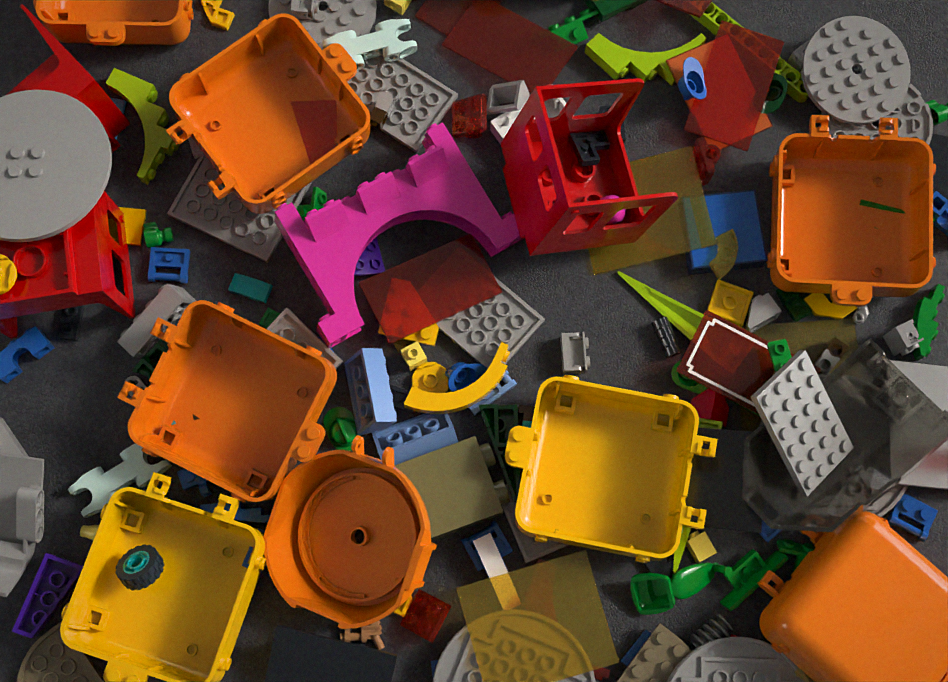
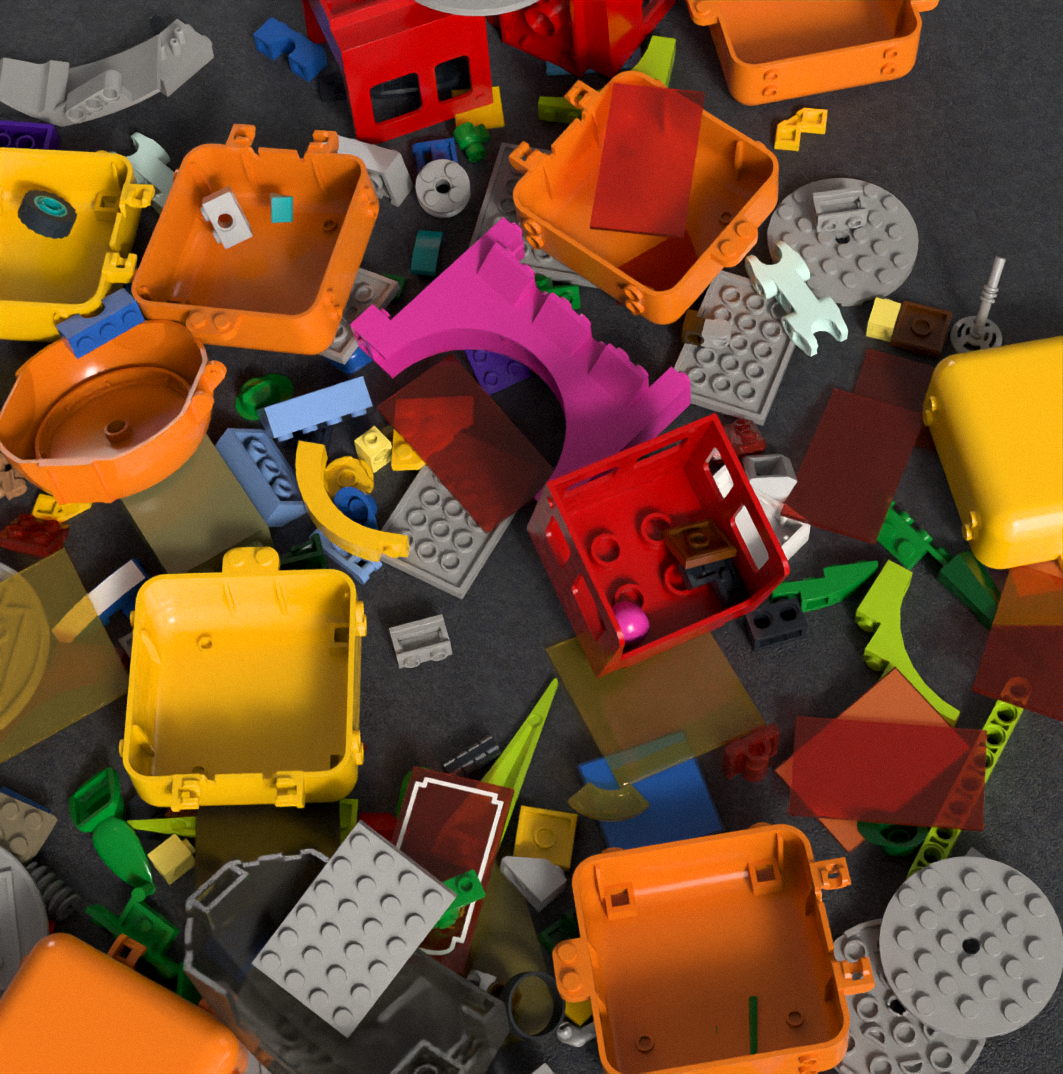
camera: 85 degrees right, 15 degrees down
(196, 421) = (221, 203): none -> brick
(199, 379) = (281, 208): none -> teal slope
(202, 251) = (447, 173): none -> light grey wheel
(254, 99) = (648, 161): none -> clear red piece
(281, 546) = (87, 334): none -> blue arch
(573, 145) = (698, 543): none -> reddish brown plate
(590, 74) = (834, 586): none -> green slope
(692, 82) = (870, 702): blue piece -> none
(840, 338) = (558, 1009): none -> black tyre

